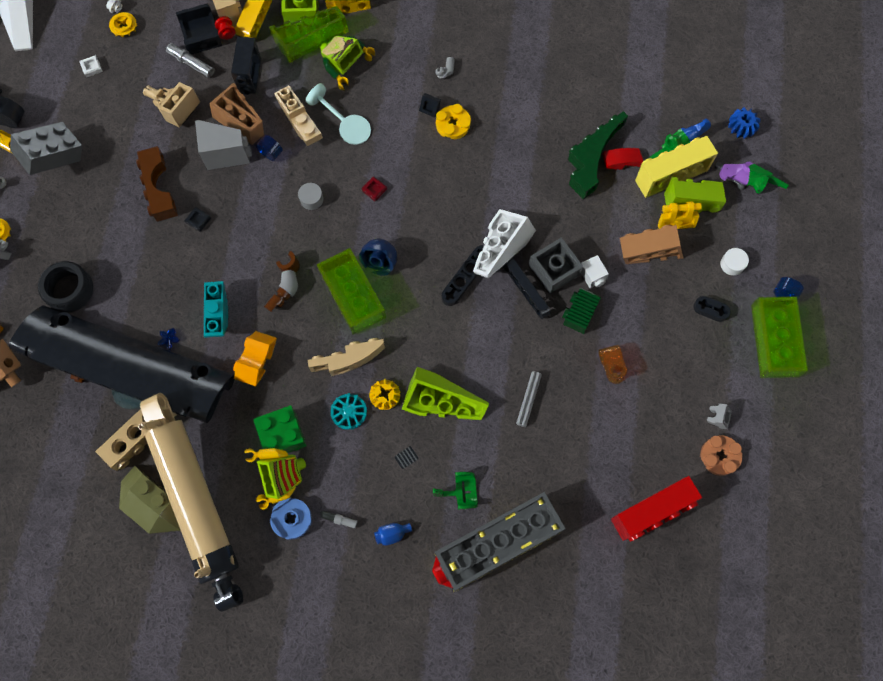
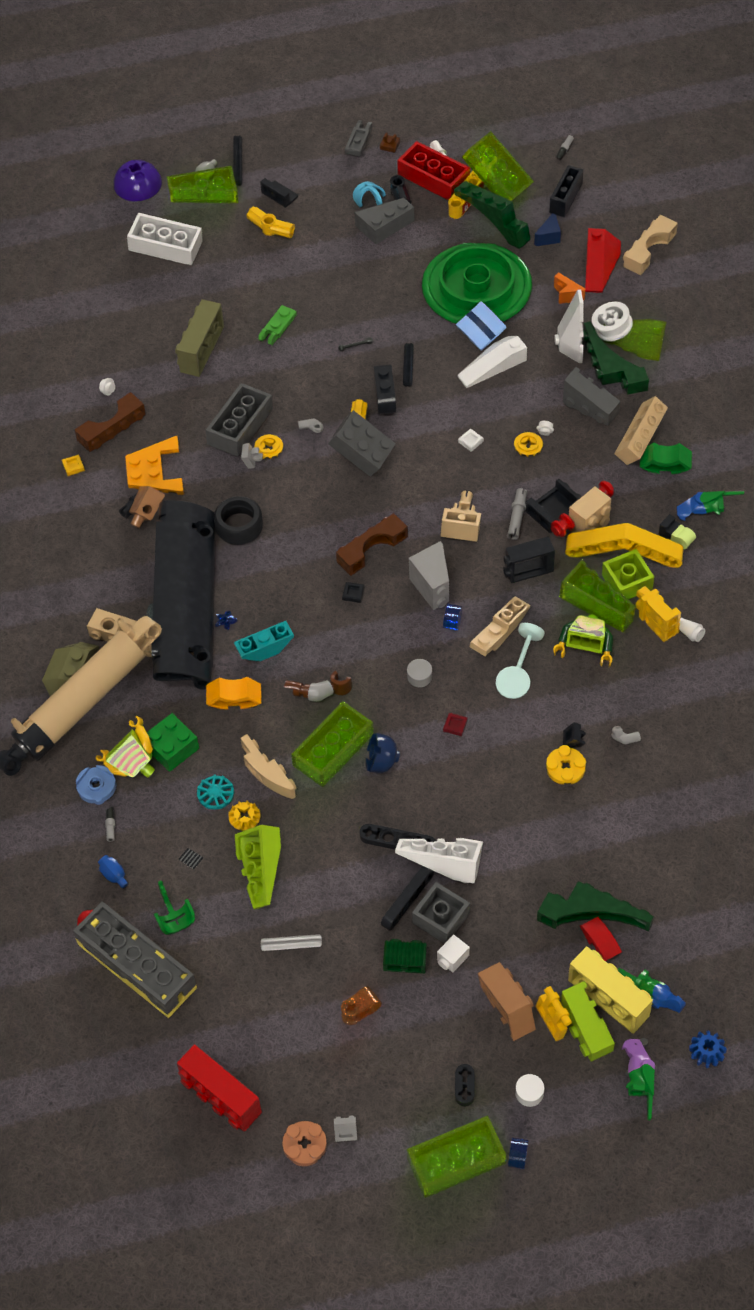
camera: 70 degrees right, 15 degrees down
(234, 112) = (475, 575): medium nougat wedge -> none

